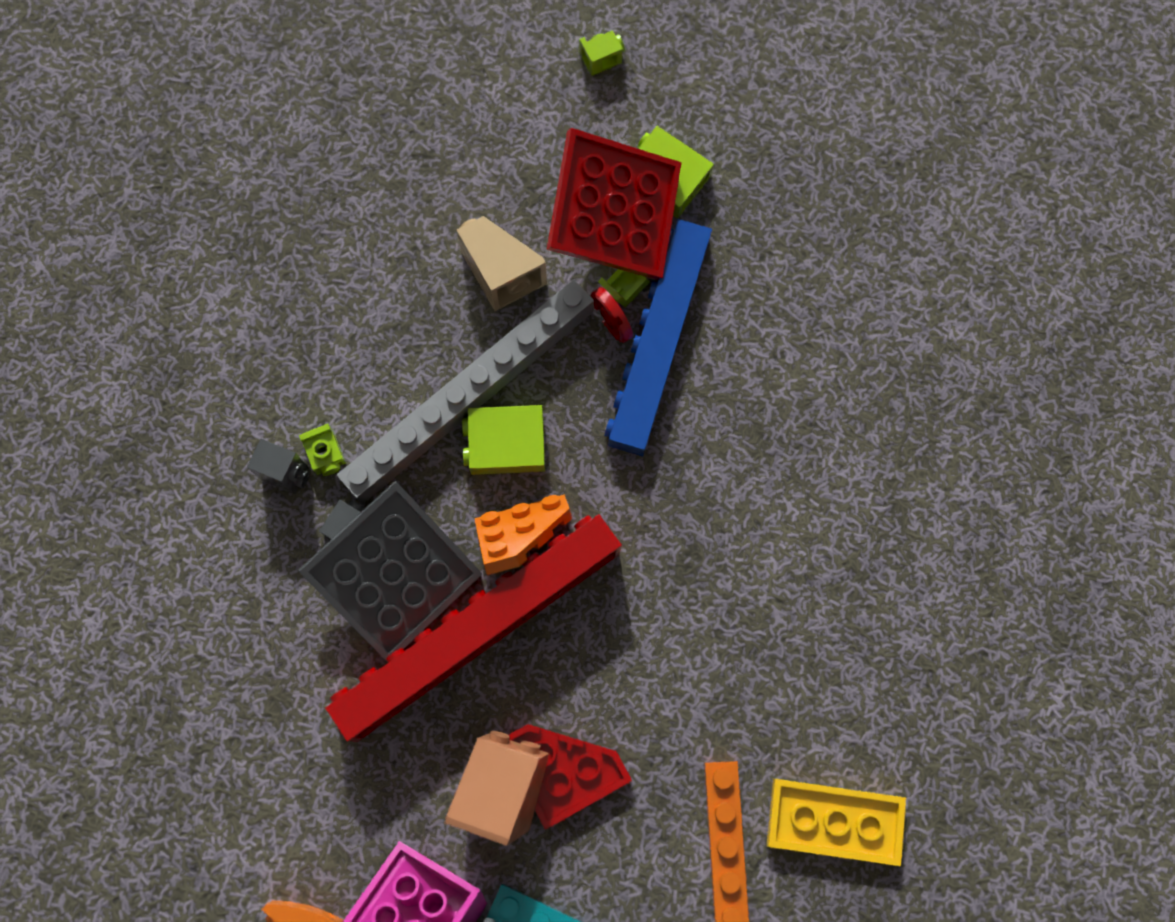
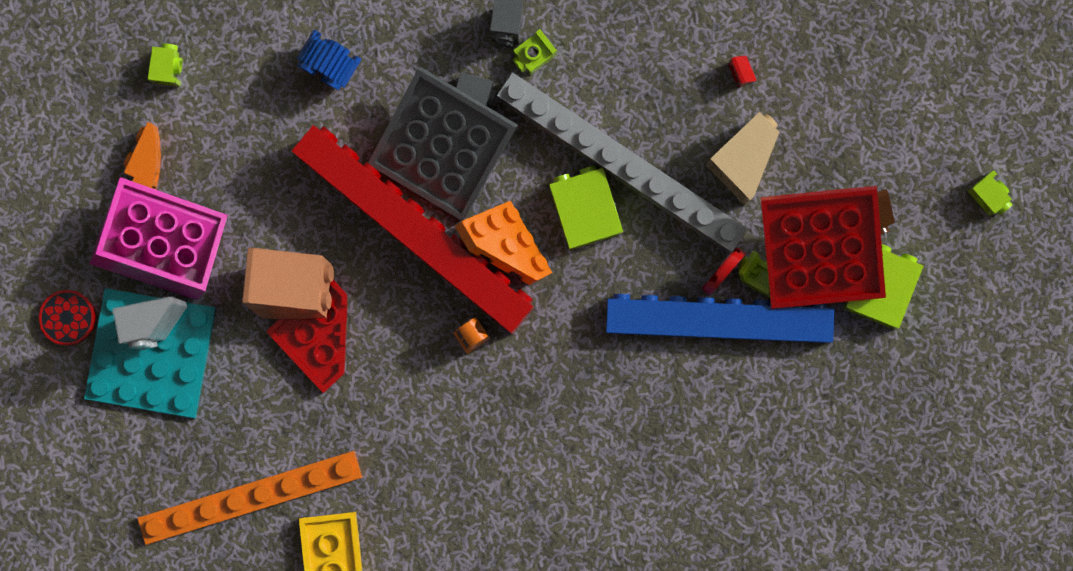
camera: 80 degrees right, 10 degrees up
(203, 871) = (165, 65): none -> lime brick
(258, 675) = (327, 59): none -> blue brick
(408, 251) = (741, 71): none -> red slope
(609, 595) = (471, 335): none -> orange leg

